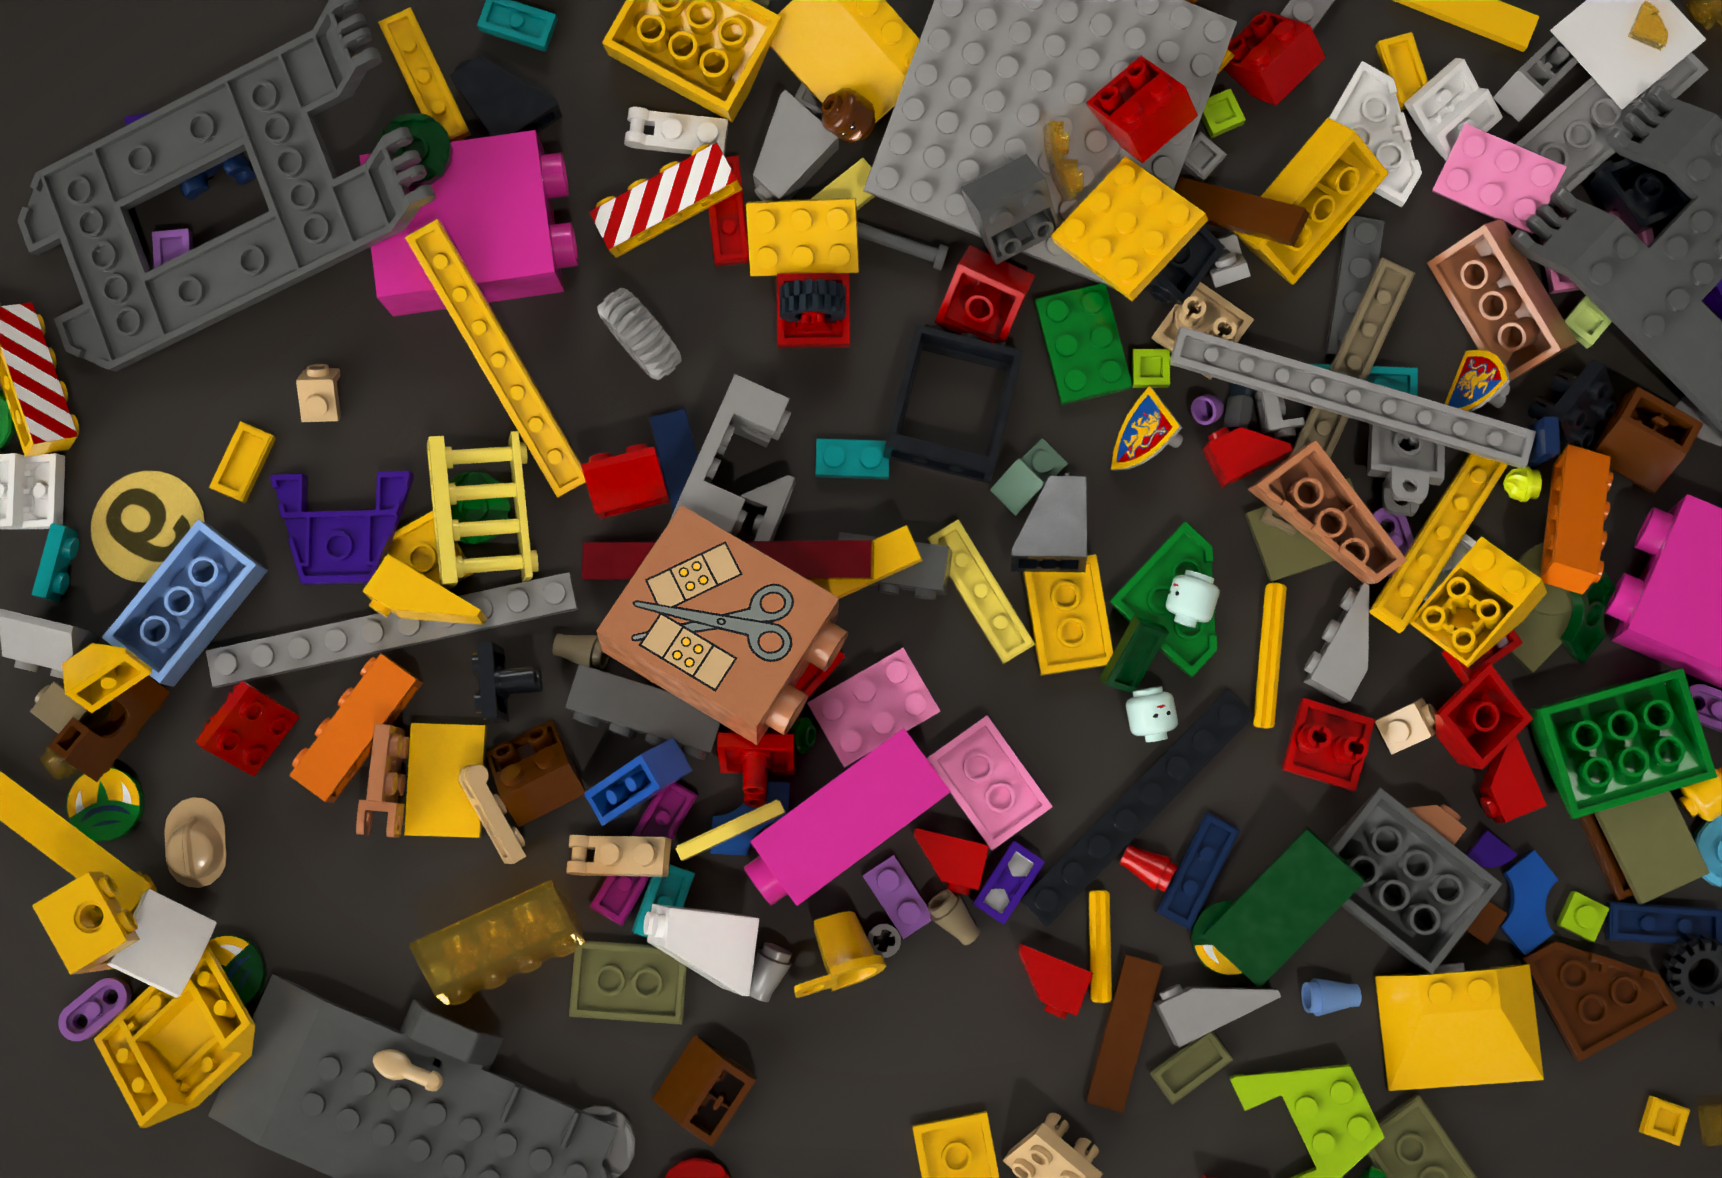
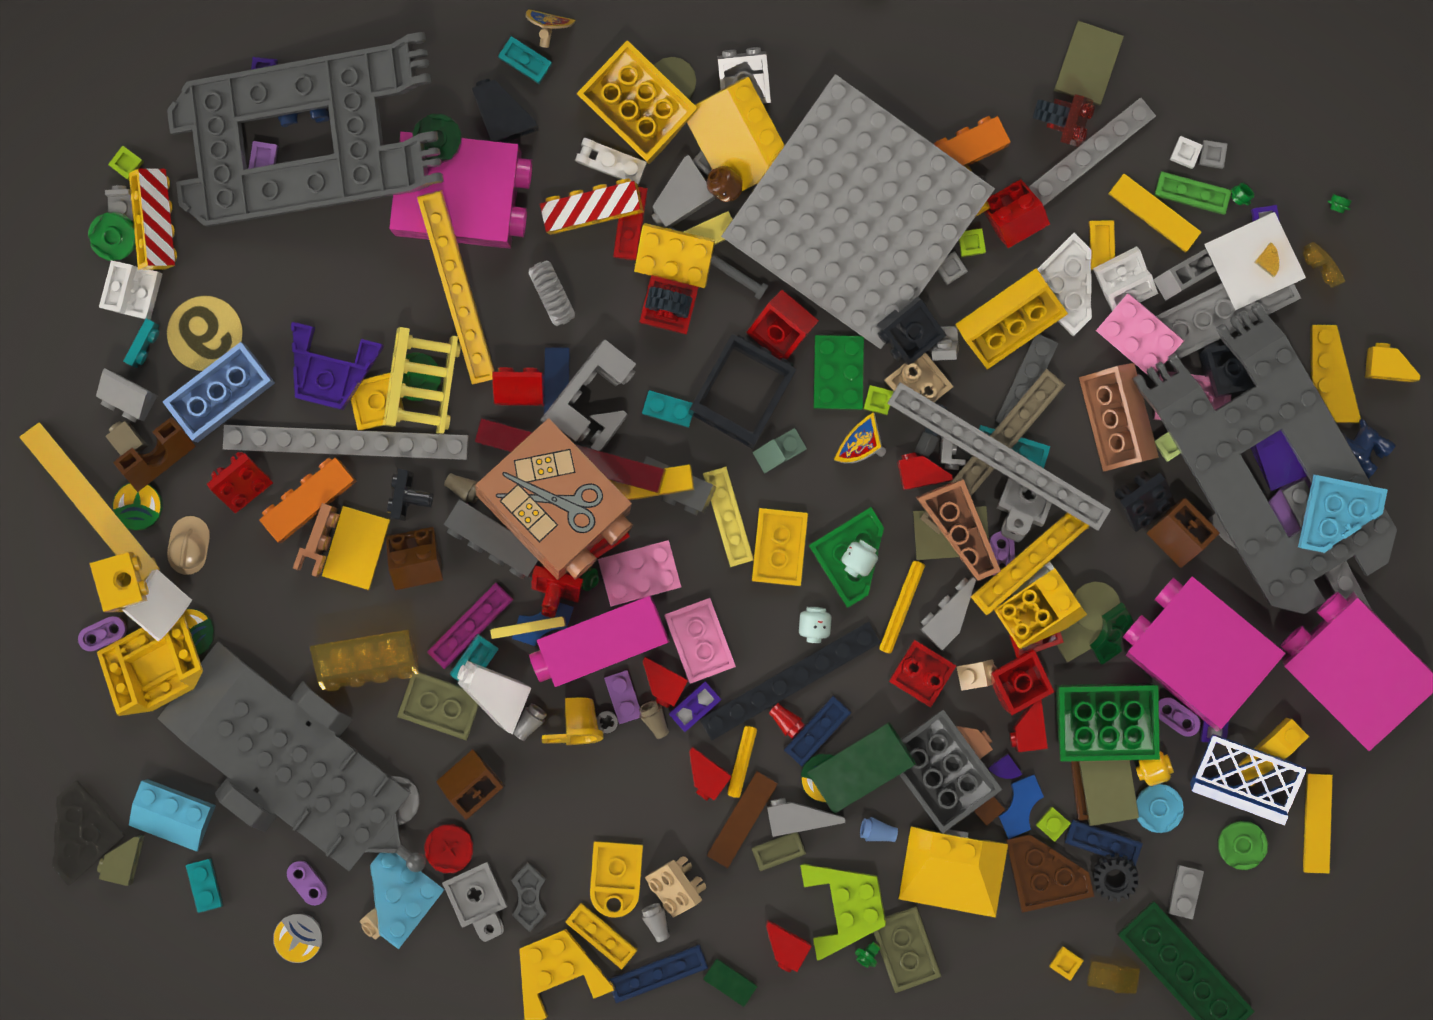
camera: 15 degrees right, 5 degrees up
(56, 765) = (113, 473): clear yellow plate -> none
(101, 674) = (157, 426): yellow slope -> none
(242, 462) = (275, 307): yellow tile -> none
(319, 393) = (335, 276): tan bracket -> none
(397, 1066) = (284, 719): tan piece -> none
(413, 596) = (365, 426): yellow slope -> none
(423, 72) = (454, 79): yellow tile -> none
(491, 813) = (380, 576): tan plate -> none
(620, 856) = (454, 625): tan plate -> none
(638, 781) = (477, 582): blue brick -> none
(1011, 208) = (812, 276): dark grey slope -> none
(1055, 529) = (785, 490): slope -> none
(1064, 172) = (853, 261): clear yellow slope -> none
(1129, 228) = (884, 309): yellow plate -> none
(1134, 654) = (813, 584): dark green tile -> none
(1143, 108) = (915, 232): red slope -> none
(1207, 409) = (906, 437): medium lavender hinge -> none
(1245, 212) = (960, 314): reddish brown tile -> none
(1479, 380) = (1085, 467): shield -> none
(1523, 484) = (1096, 539): neon yellow plate -> none
(1546, 440) = (1114, 517): dark blue tile -> none
(1576, 519) = (1119, 573): orange brick -> none

